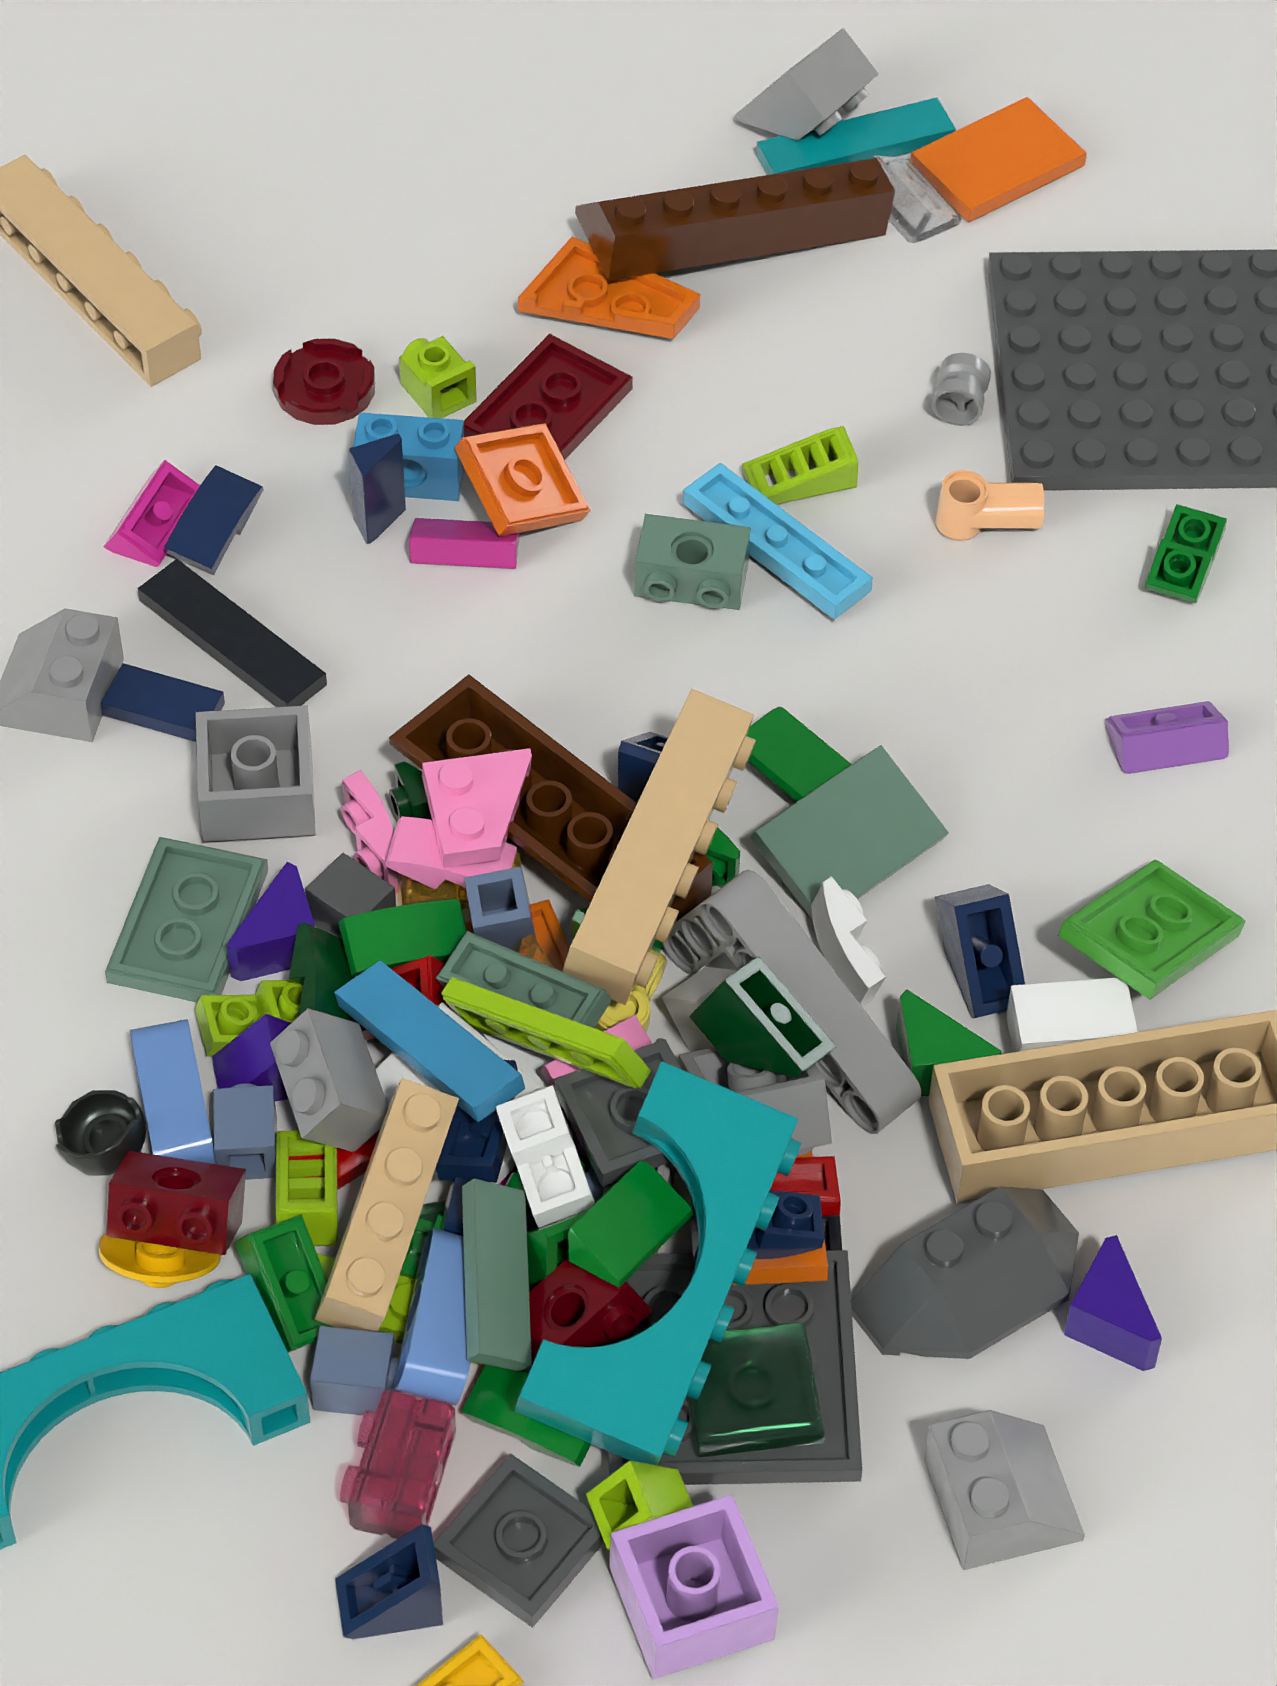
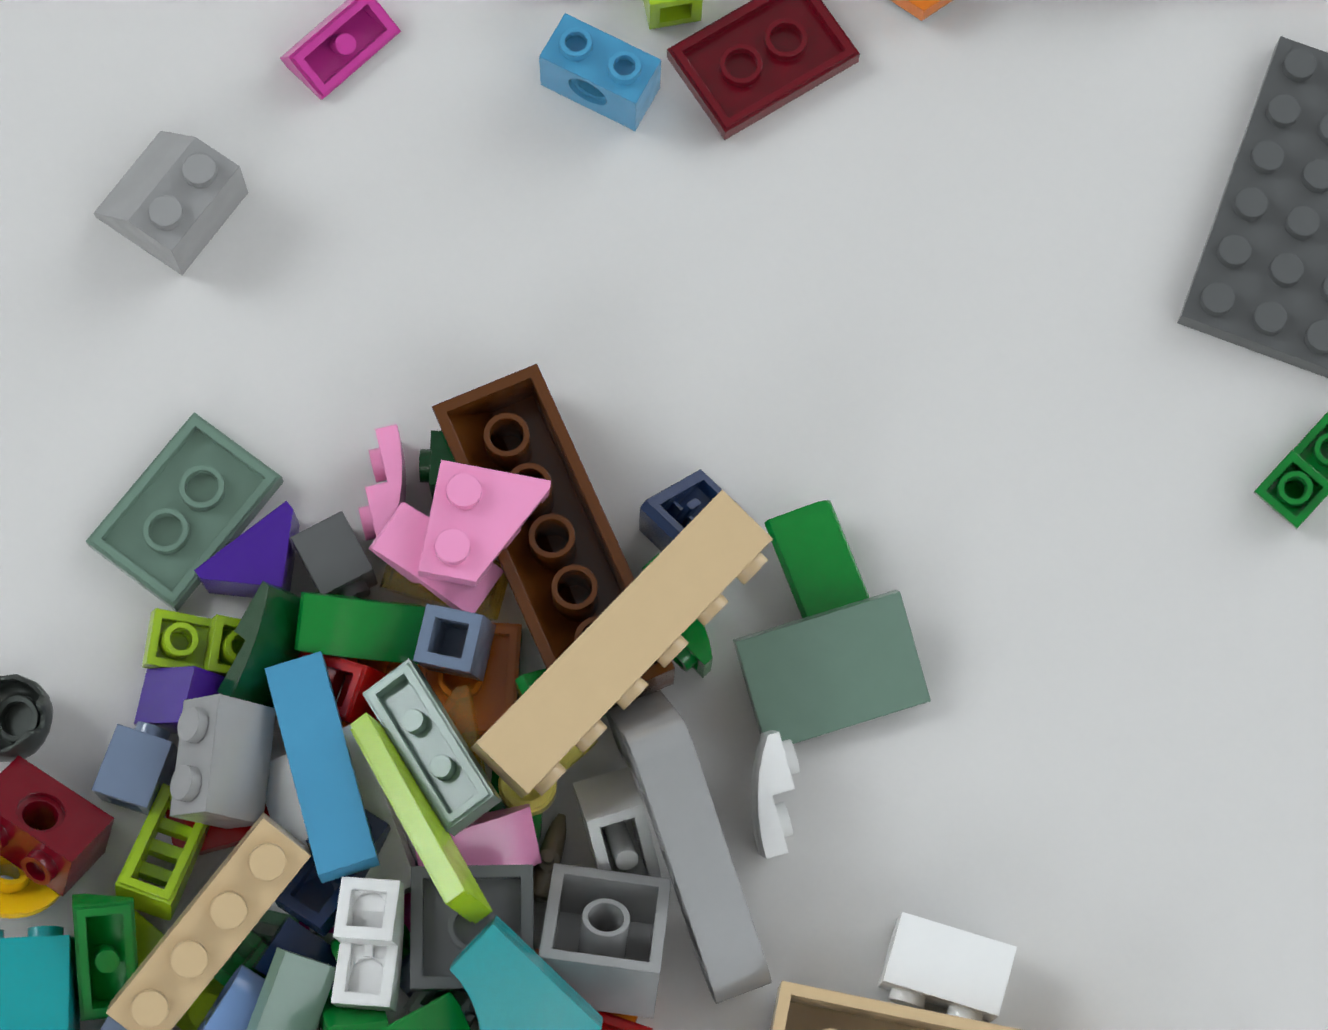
camera: 20 degrees right, 20 degrees up
(159, 701) = (259, 261): dark blue tile -> none
(172, 1092) = (87, 702): medium blue beam -> none
(213, 518) = (388, 71): dark blue slope -> none
(232, 636) = (354, 210): black tile -> none
(255, 773) = (301, 385): light grey brick -> none
(377, 485) = (550, 101): dark blue slope -> none
(461, 544) = (617, 184): dark pink slope -> none
(522, 479) = (693, 143): orange tile -> none
(692, 561) = (807, 270): sand green brick -> none
(761, 1023) = (632, 885): dark green slope -> none
(780, 541) = (915, 301): medium azure plate -> none
(827, 450) = (977, 206): lime slope -> none
(933, 1038) = (807, 945): green slope -> none
(961, 389) = (1177, 190): light grey wheel -> none
(973, 504) = (1145, 344): light nougat piece -> none
(981, 946) = (901, 846): dark blue slope -> none
(1151, 928) = (1071, 895): bright green tile -> none
(1169, 737) = (1197, 671): medium lavender slope -> none

